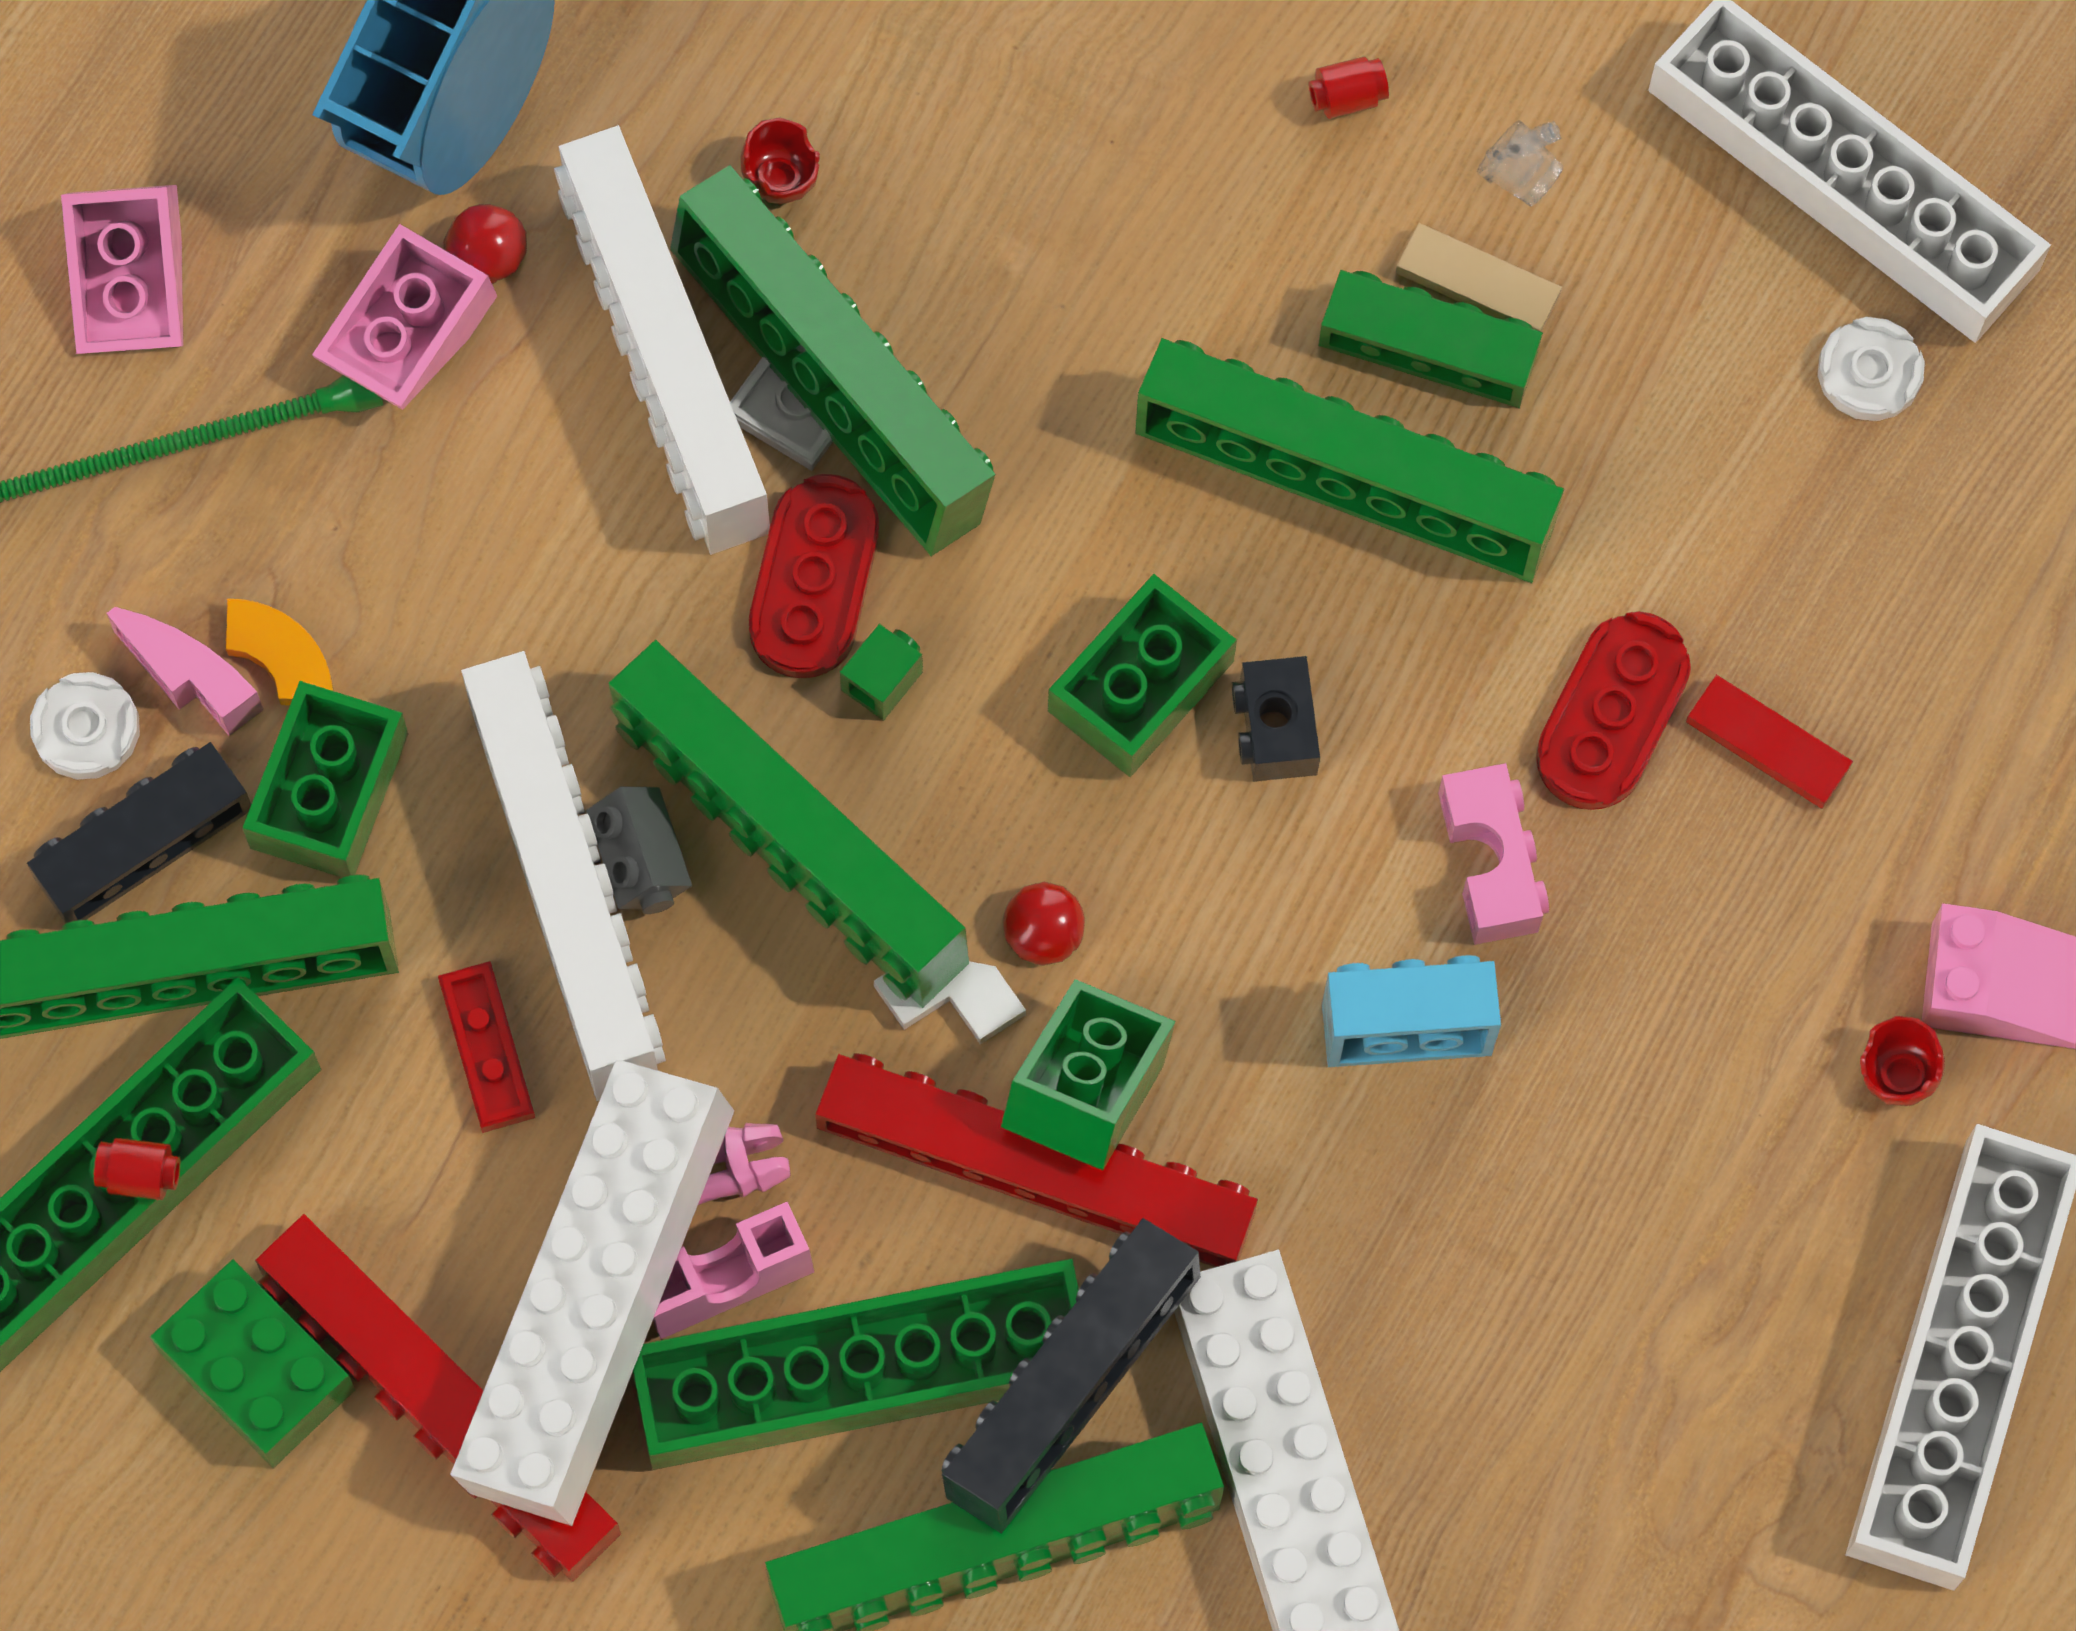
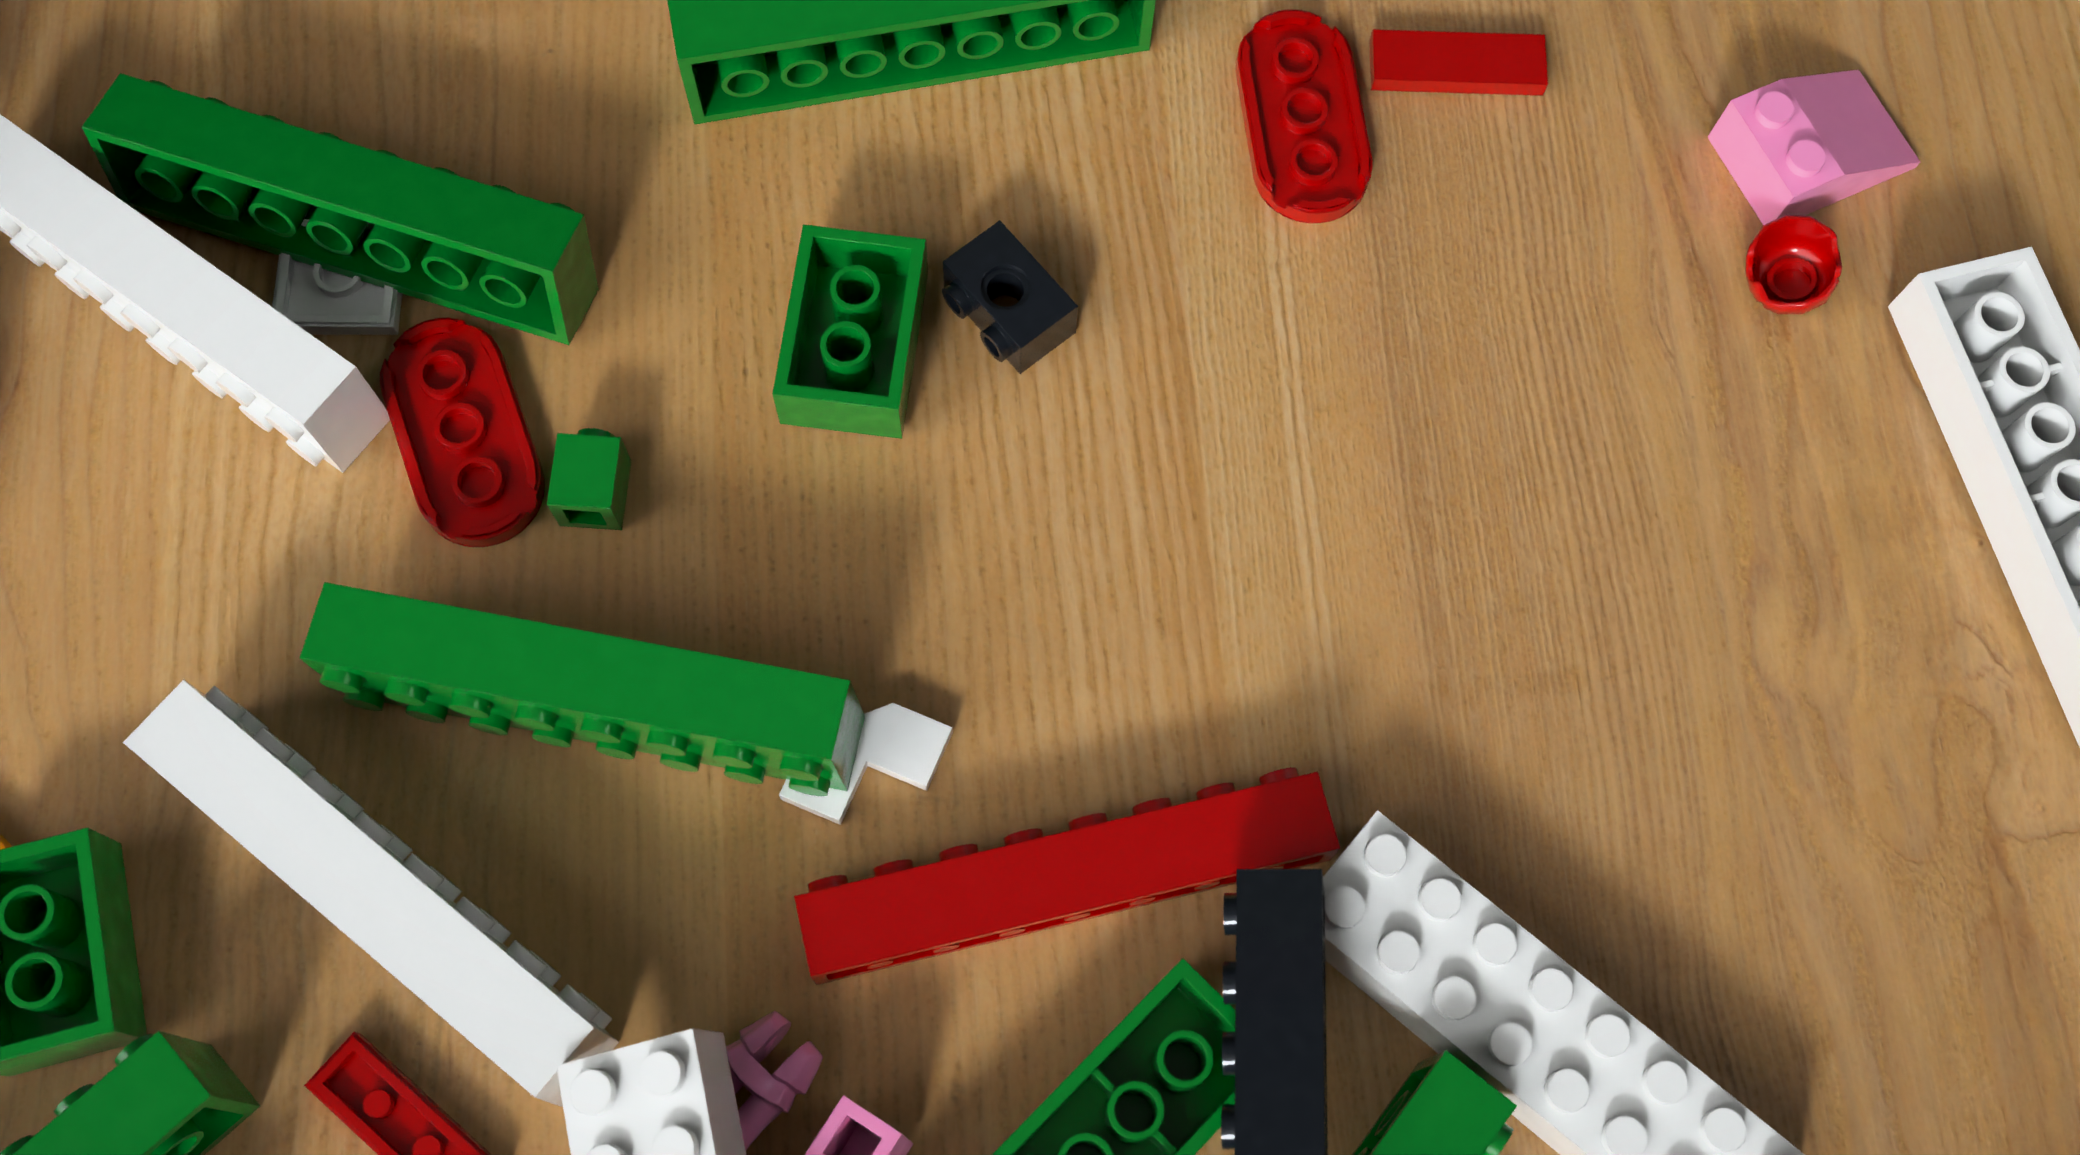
camera: 35 degrees left, 0 degrees up
(639, 849) = (445, 812): dark grey brick -> none
(780, 160) = (182, 56): red hair -> none
(1044, 923) = (912, 630): red hair -> none
(1088, 1074) = (1069, 755): green brick -> none
(1410, 1012) = (1333, 491): medium azure brick -> none
(1485, 808) = (1261, 266): bright pink arch -> none

